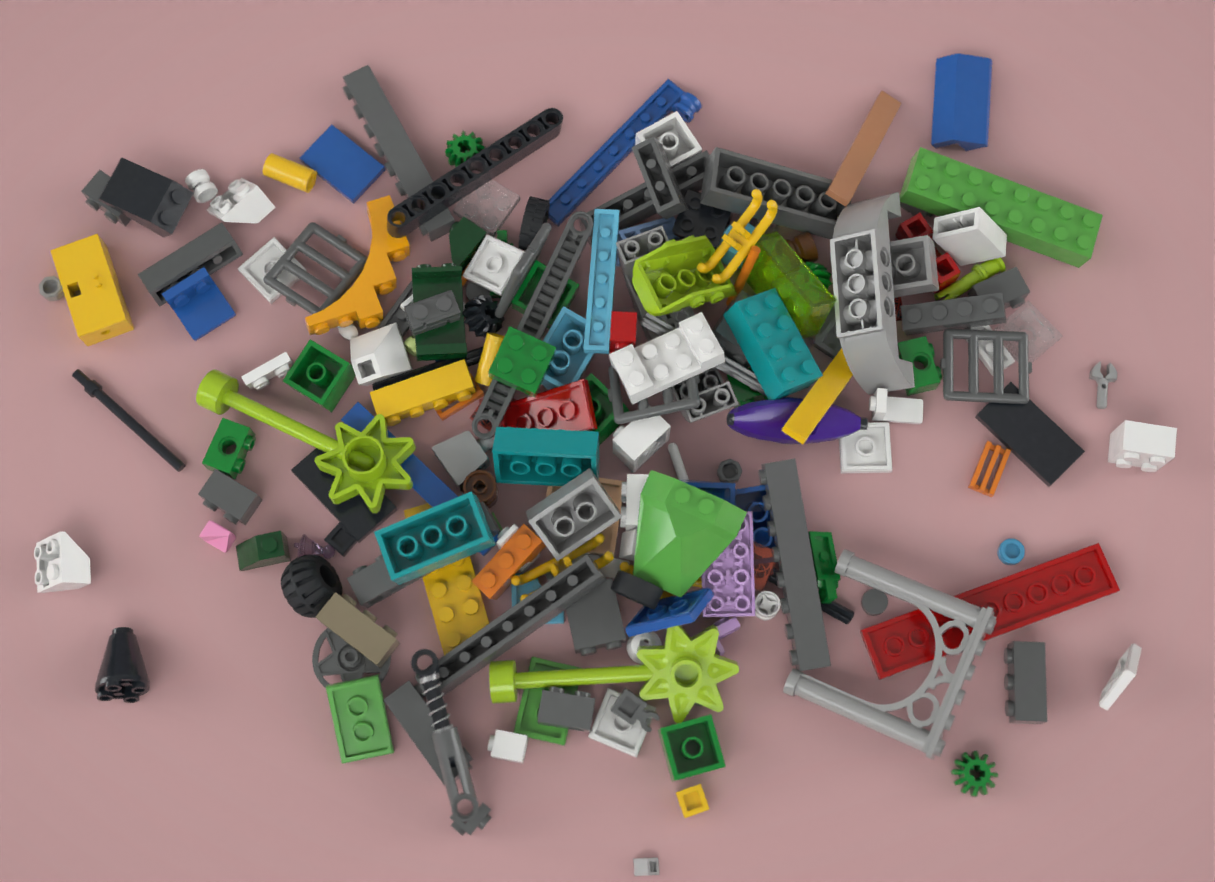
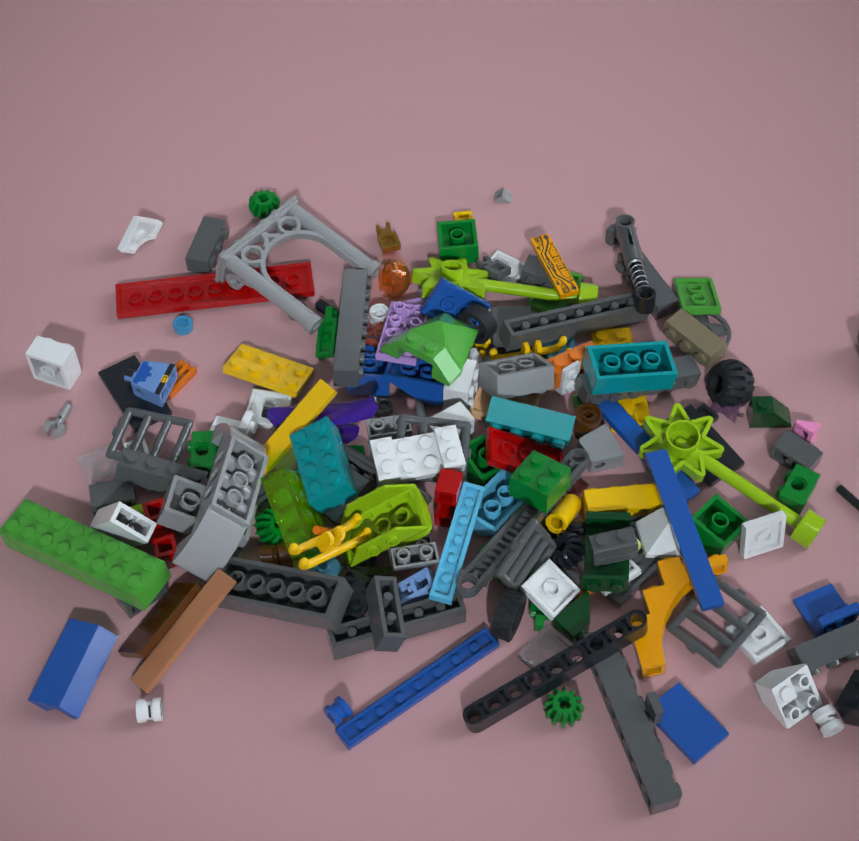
camera: 170 degrees left, 20 degrees down
(289, 172) = (739, 718): yellow pin -> none
(357, 346) = (684, 530): none -> blue tile
(374, 158) = (654, 707): none -> dark grey tile
(508, 746) = (589, 266): white brick -> none
(552, 709) = (554, 266): none -> light orange tile
(675, 138) = (366, 670): white brick -> none
(760, 668) = (394, 278): none -> clear orange cylinder
(786, 742) = (387, 240): none -> pearl gold plate
(870, 75) = (149, 710): none -> white wheel
(881, 498) = (268, 370): none -> yellow plate
(893, 153) = (159, 620): none -> reddish brown tile
(1012, 438) = (152, 381): none -> medium blue torso

